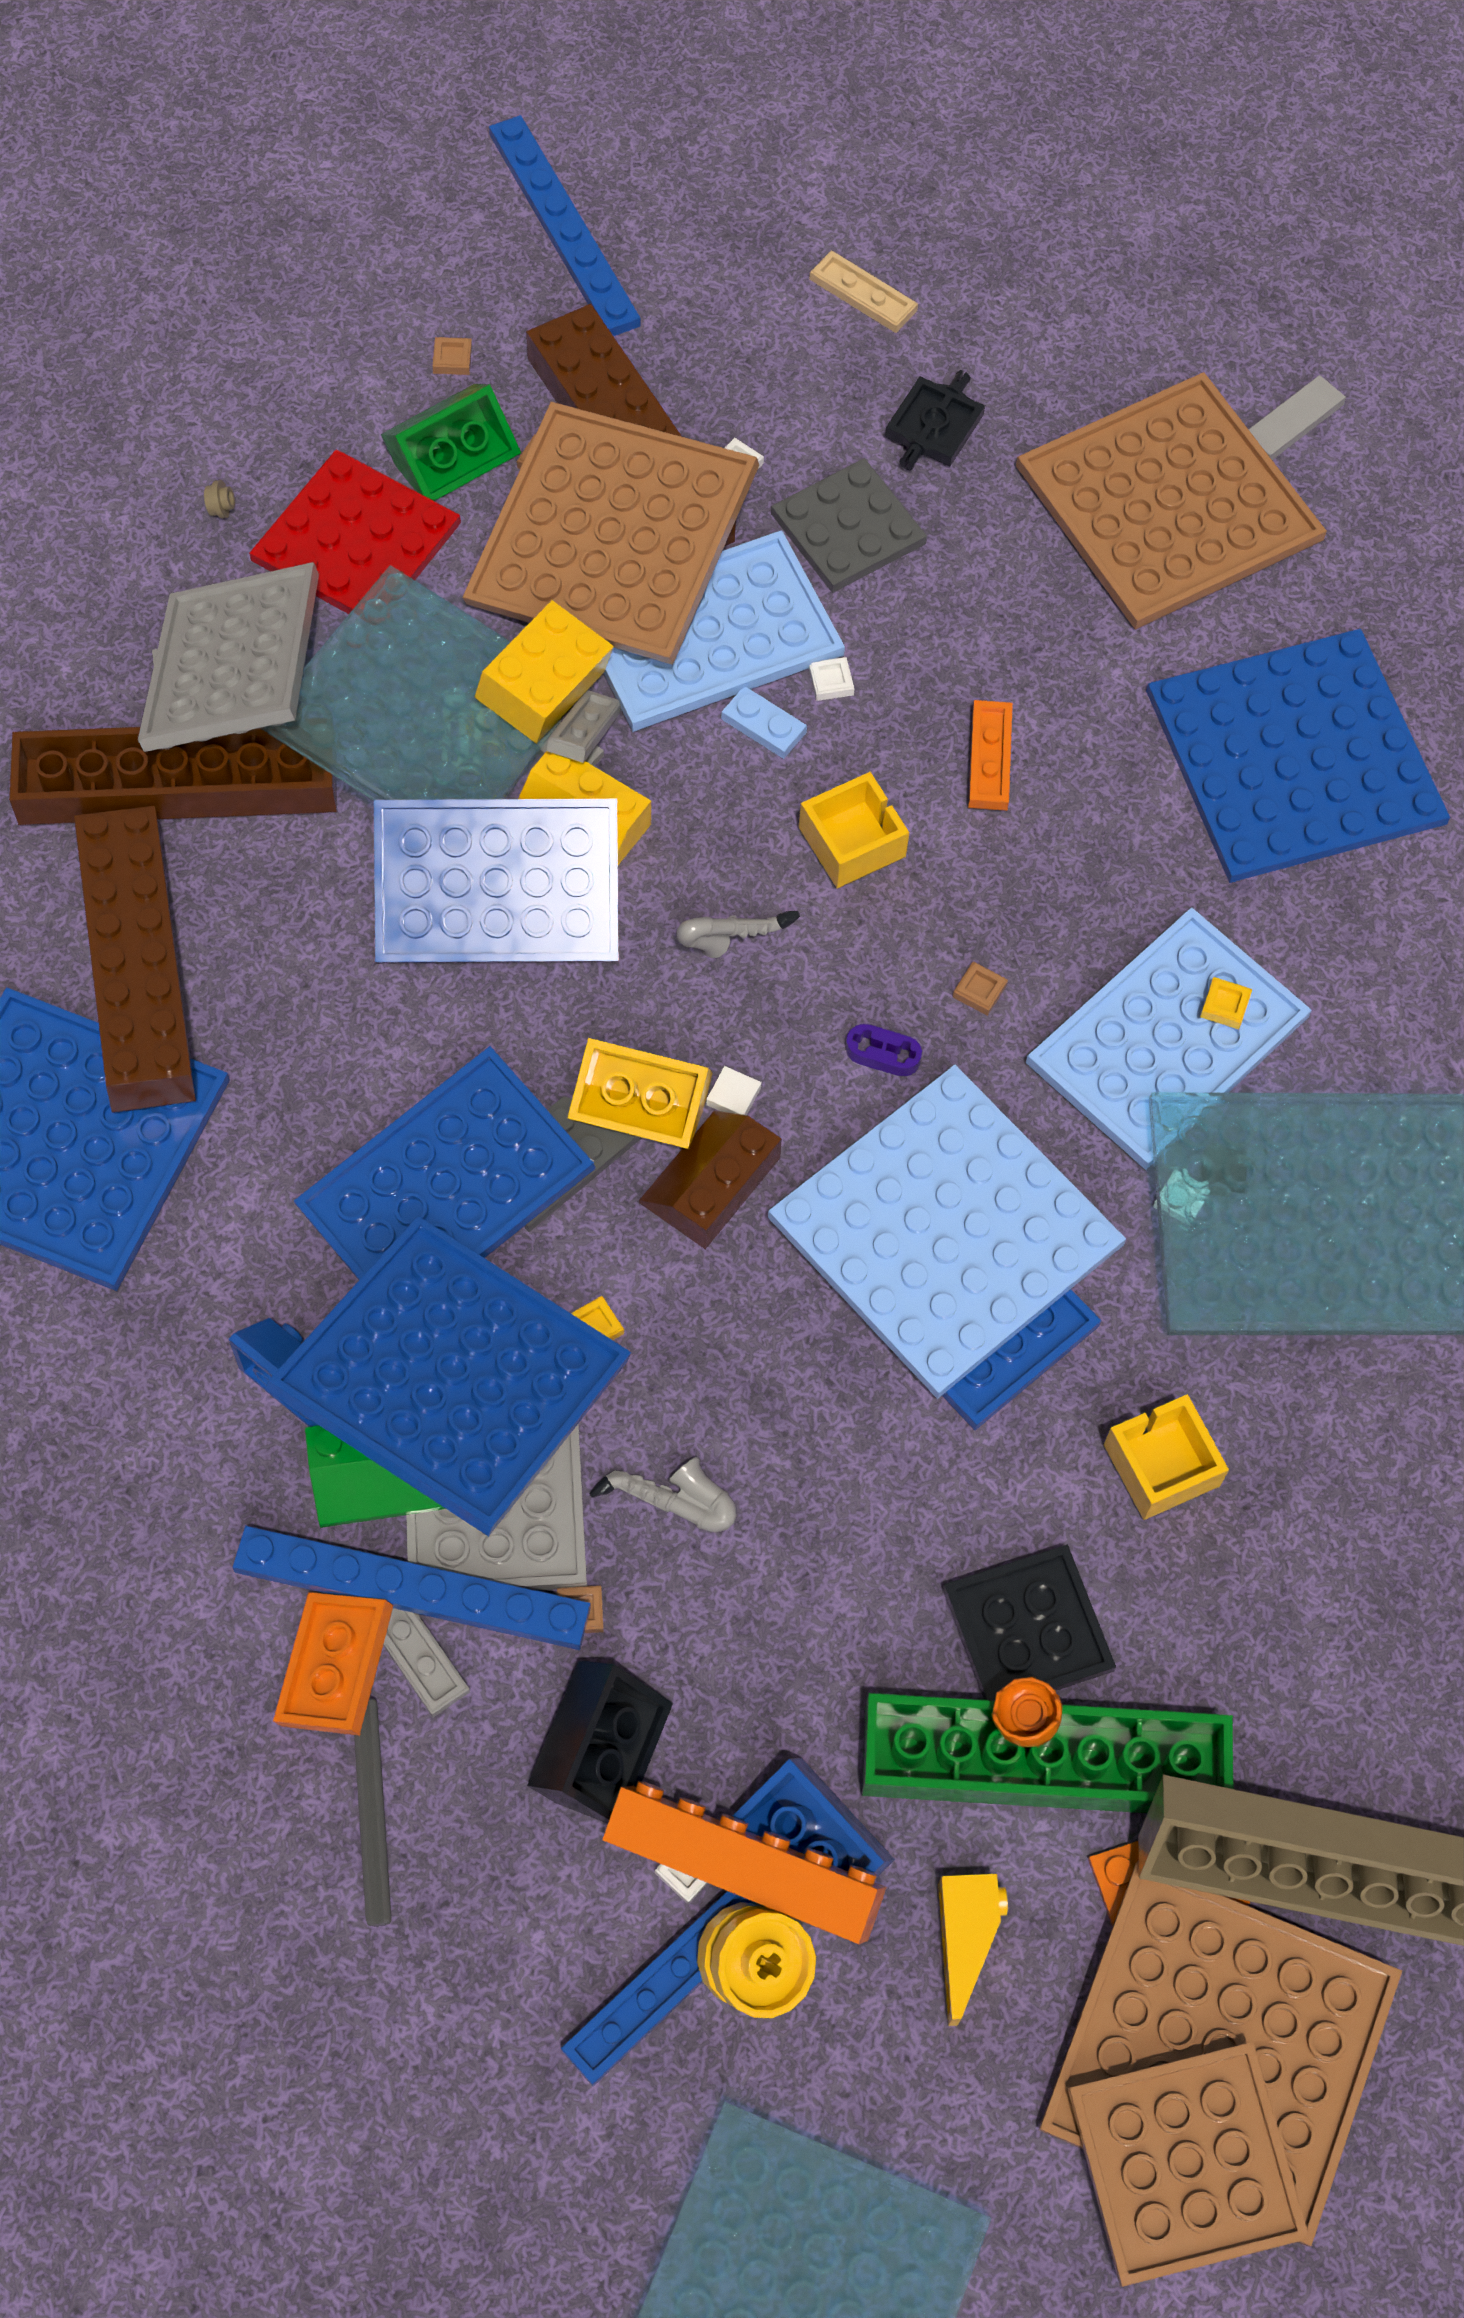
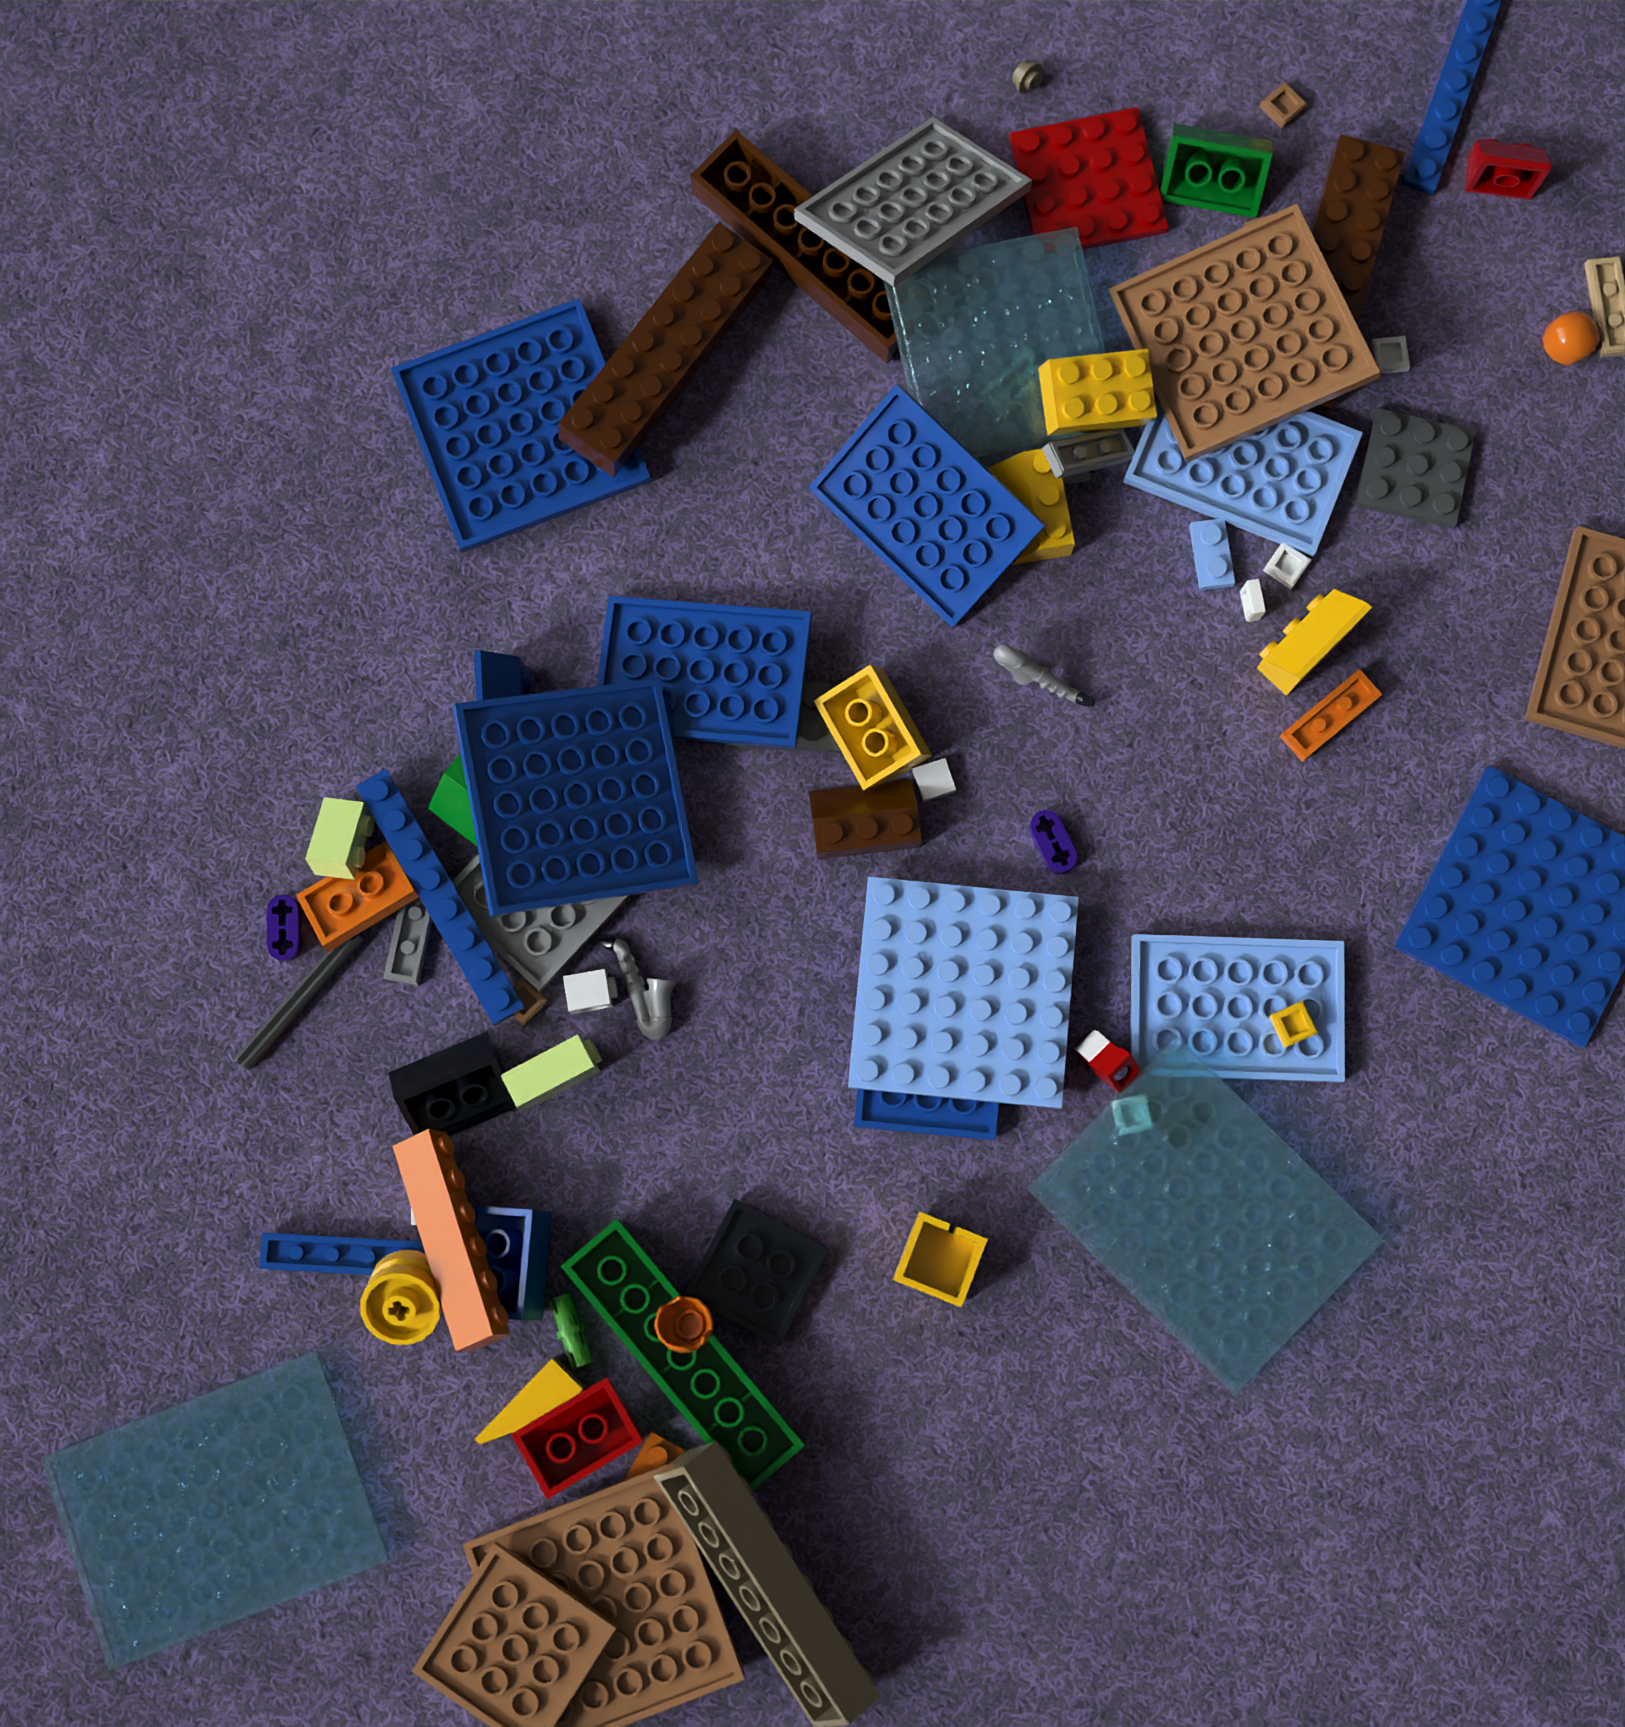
camera: 50 degrees right, 15 degrees up
(265, 1627) = (340, 838): none -> yellowish green brick
(298, 1755) = (275, 928): none -> dark purple beam
(600, 1317) = (706, 841): yellow tile -> none
(631, 1539) = (589, 991): none -> white brick
(676, 1631) = (552, 1072): none -> yellowish green brick
(679, 258) = (1506, 169): none -> red slope
(836, 724) = (1252, 600): none -> white tile
(847, 829) = (1181, 683): yellow piece -> none
(859, 335) = (1571, 337): none -> orange hair
(915, 709) = (1311, 639): none -> yellow slope
(929, 1844) = (570, 1331): none -> bright green pin
(935, 420) = (1553, 447): black plate -> none
(980, 988) = (1156, 861): medium nougat tile -> none
(1039, 1919) = (578, 1437): none -> red slope
(1118, 1169) = (1107, 1060): none -> red leg

